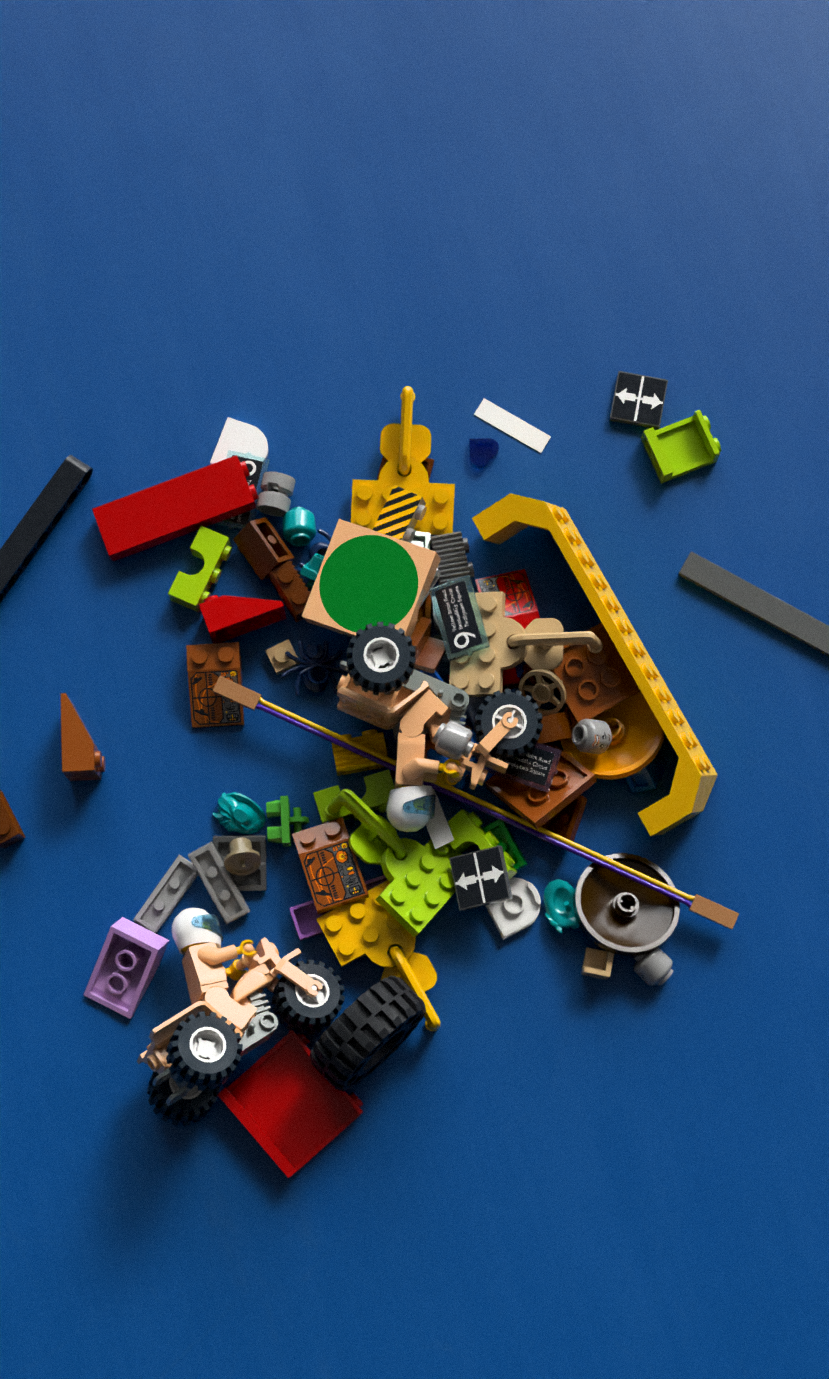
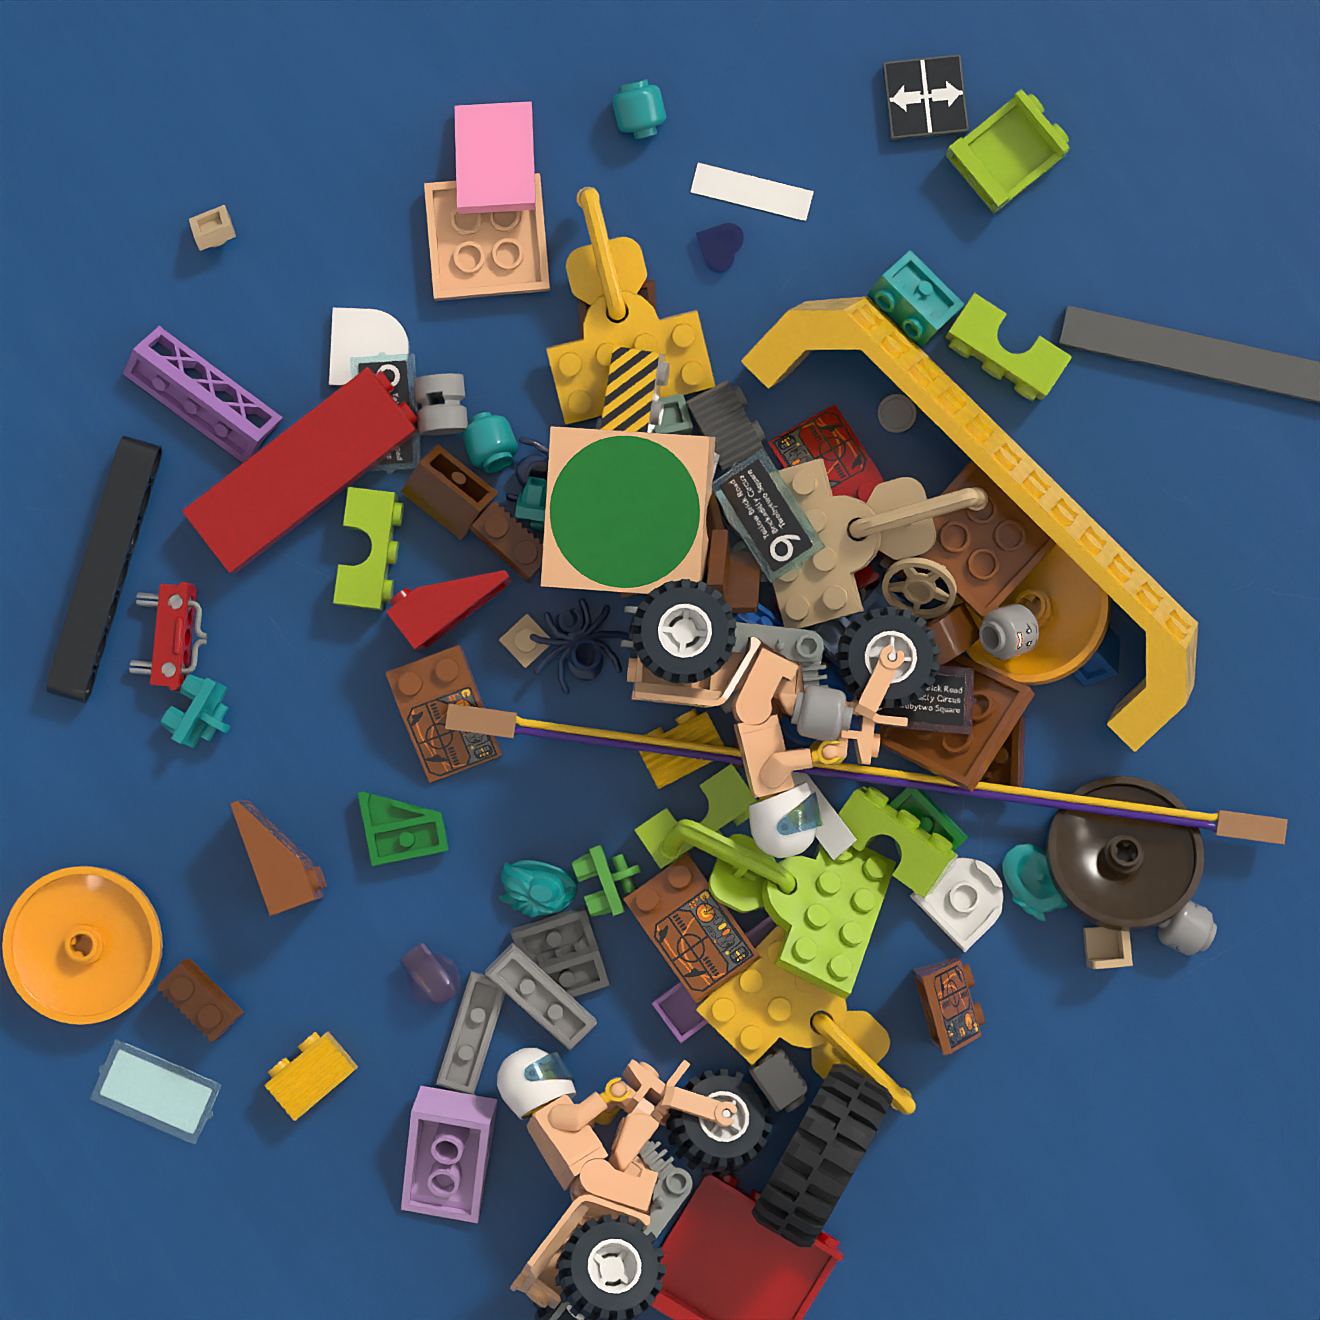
camera: 15 degrees left, 10 degrees up
(54, 888) = (310, 1075): none -> yellow brick
(58, 592) = (172, 635): none -> red piece
(62, 639) = (203, 714): none -> teal hips
(124, 446) = (196, 399): none -> medium lavender fence
(152, 848) = (431, 976): none -> clear purple piece
(163, 750) = (400, 830): none -> green wing
(168, 348) = (212, 228): none -> tan plate
(242, 858) = (562, 953): dark tan piece -> none
(337, 403) = (484, 251): none -> light nougat plate
(355, 979) = (779, 1079): none -> dark grey brick
(357, 356) = (495, 157): none -> bright pink tile
(456, 353) = (639, 108): none -> teal head
(480, 878) = (912, 884): black tile -> none
(481, 965) = (948, 1004): none -> dark orange slope
(562, 586) = (896, 413): none -> light grey piece
(595, 518) = (915, 298): none -> teal bracket
(655, 583) = (1031, 371): none -> lime arch

